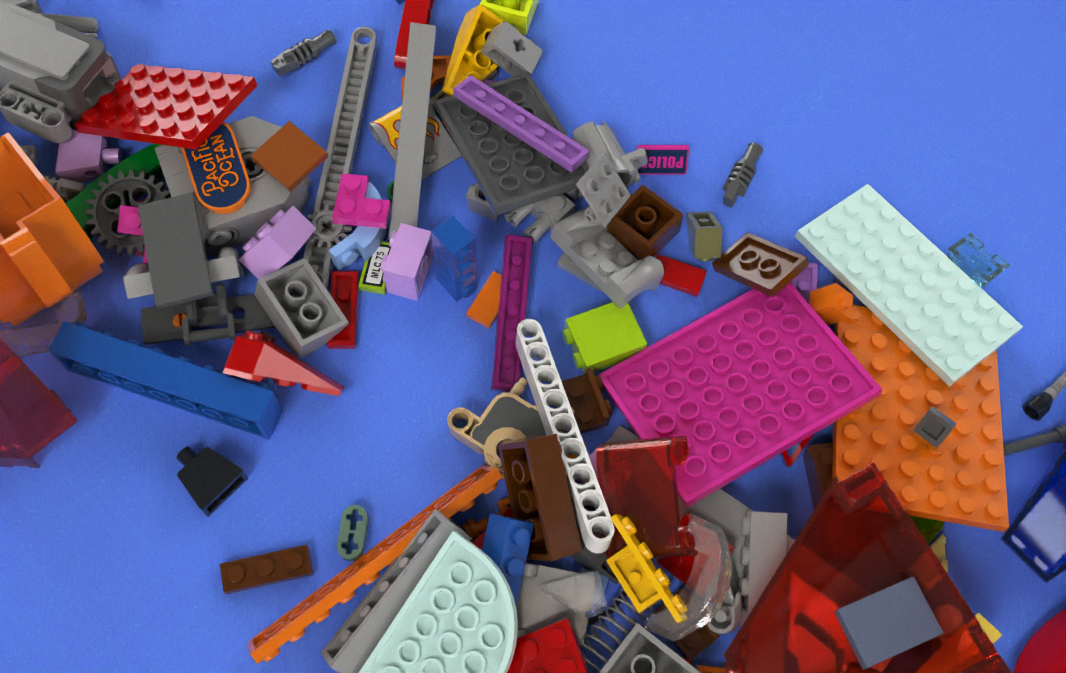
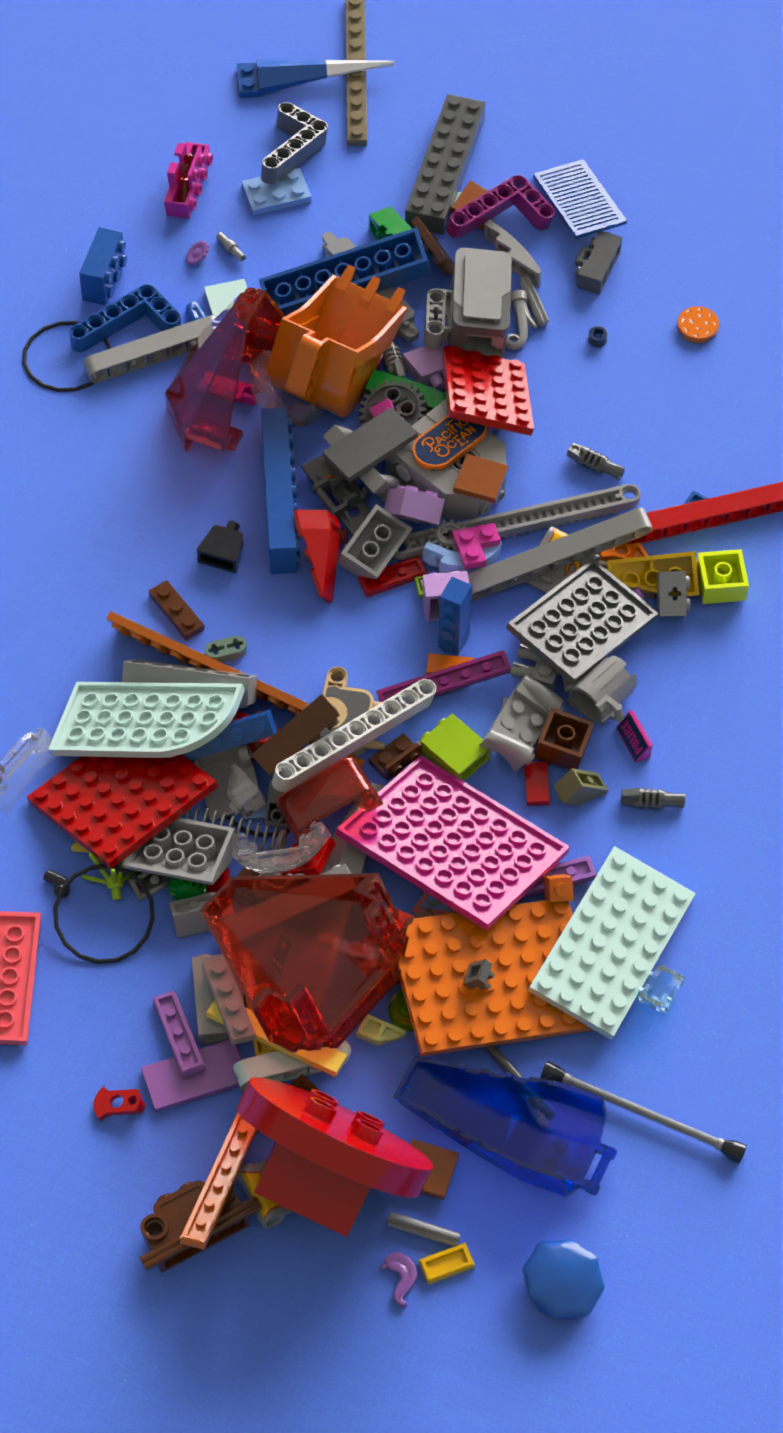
camera: 70 degrees right, 10 degrees down
(521, 123) = (596, 616): medium lavender plate -> none
(602, 191) = (564, 688): light grey hinge -> none
(639, 576) = (269, 812): yellow bracket -> none
(760, 264) = (568, 828): reddish brown plate -> none
(888, 622) = (301, 967): sand blue tile -> none

